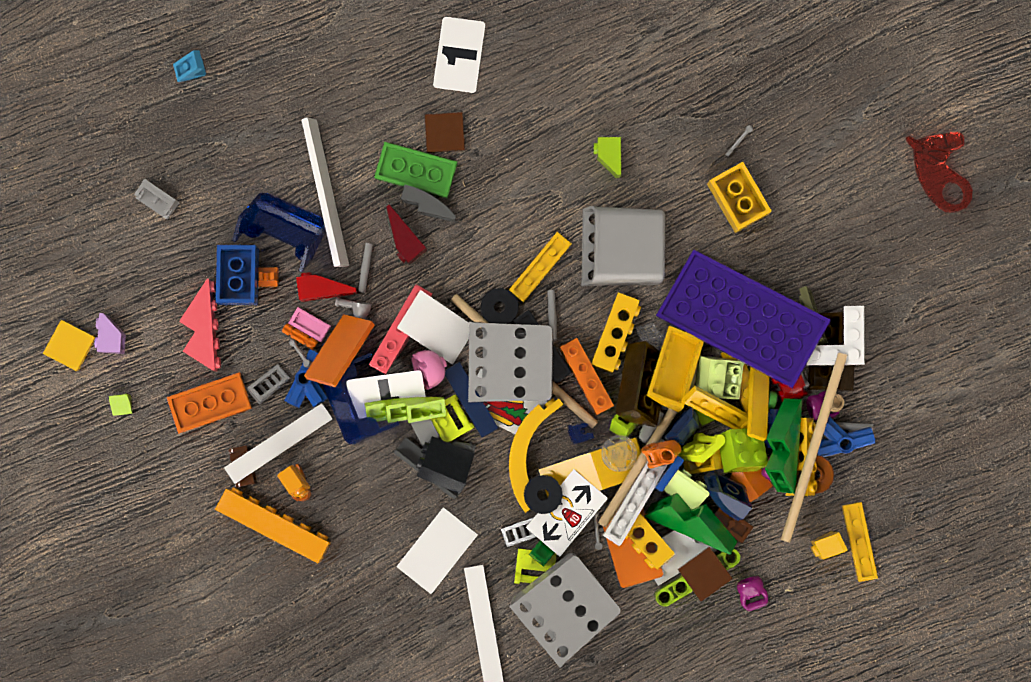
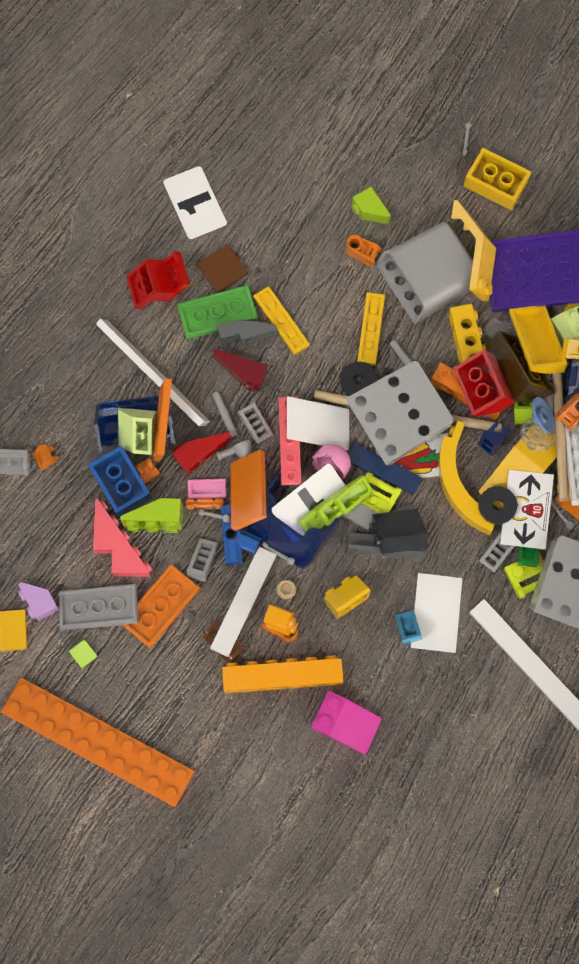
camera: 30 degrees left, 10 degrees down
(89, 486) = (98, 742): none -> orange plate
(156, 372) = (98, 607): none -> light grey tile
(187, 212) = (43, 456): none -> orange tile
(255, 326) = (155, 516): none -> lime slope
(279, 239) = (137, 430): none -> yellowish green slope
(301, 245) = (162, 420): none -> orange tile
(301, 597) = (346, 722): none -> dark pink slope
(322, 453) = (286, 589): none -> tan plate
(340, 432) = (290, 561): none -> light grey hinge
(367, 492) = (347, 596): none -> yellow slope
(379, 111) = (158, 280): none -> red bracket
(381, 308) = (257, 413): none -> light grey slope
(402, 550) = (408, 627): none -> dark azure slope
(466, 212) = (279, 316): none -> yellow tile
(578, 192) = (363, 251): none -> orange piece
(598, 382) = (483, 384): none -> red slope
(633, 440) = (543, 415): none -> medium blue dish
(680, 259) = (483, 256): none -> yellow windscreen

